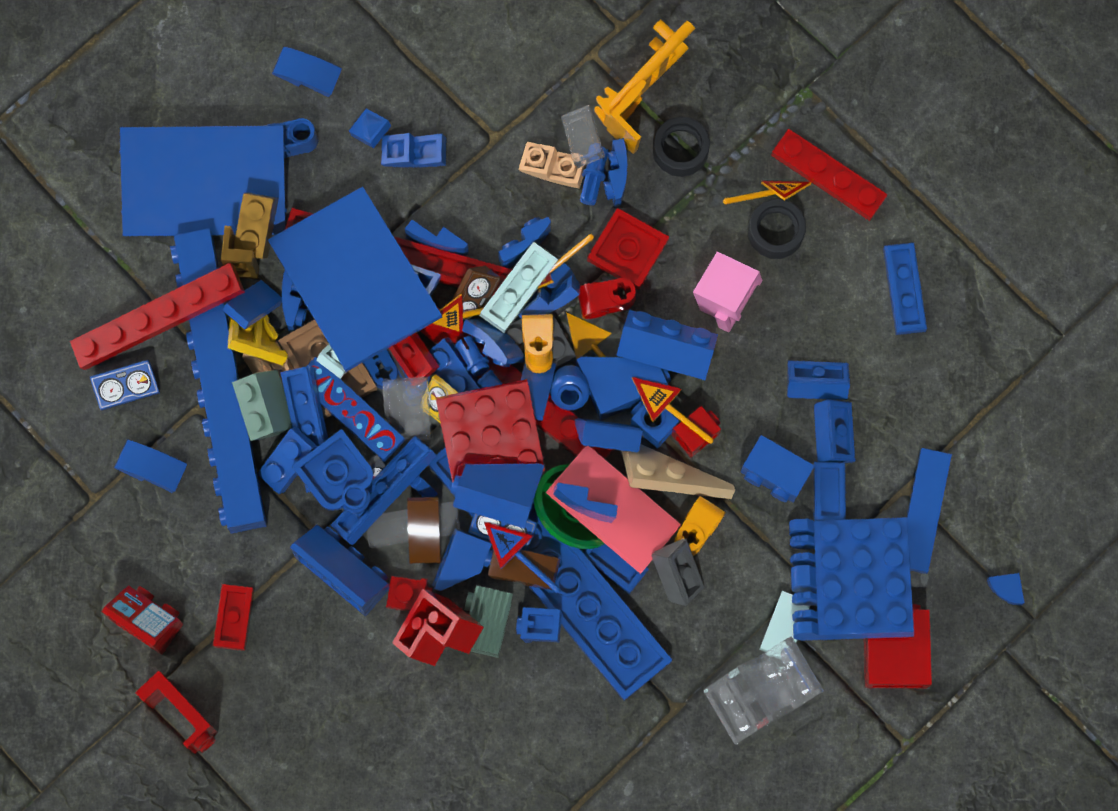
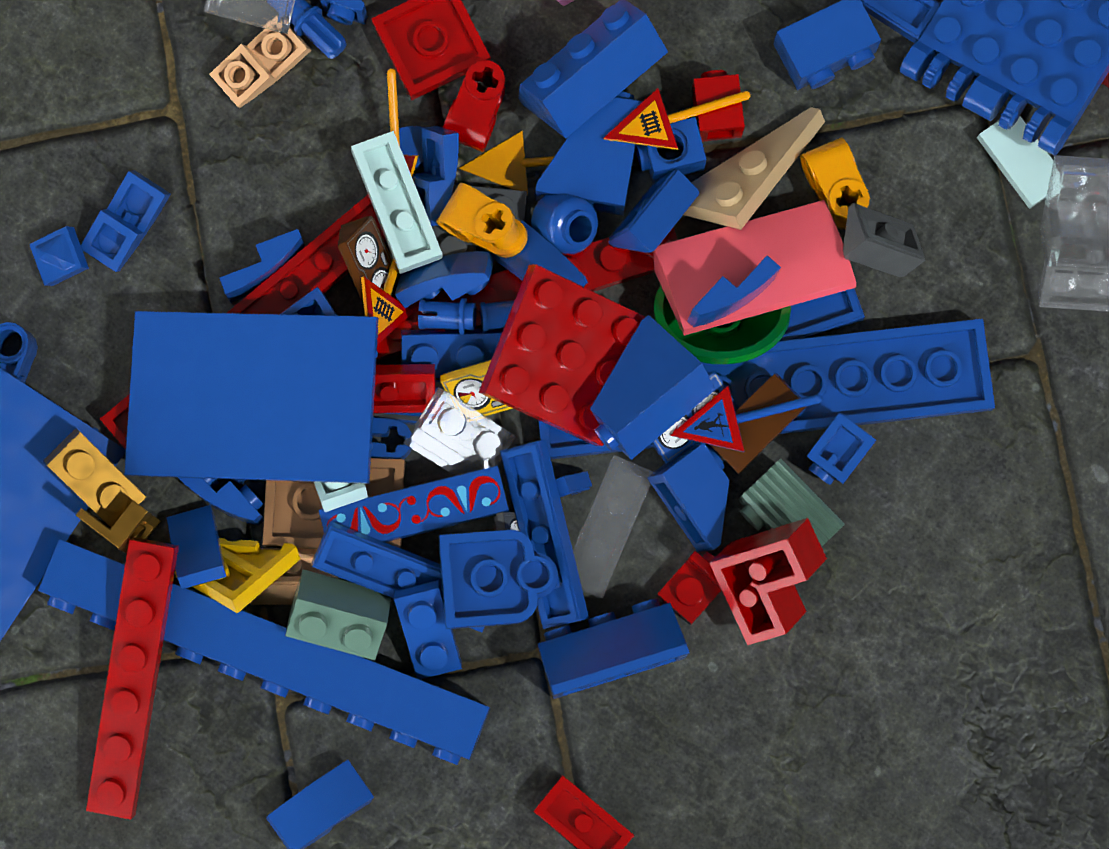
camera: 55 degrees left, 5 degrees up
(124, 384) = (191, 775): slope -> none
(424, 530) = (628, 516): reddish brown slope -> none
(533, 231) = (337, 149): blue slope -> none

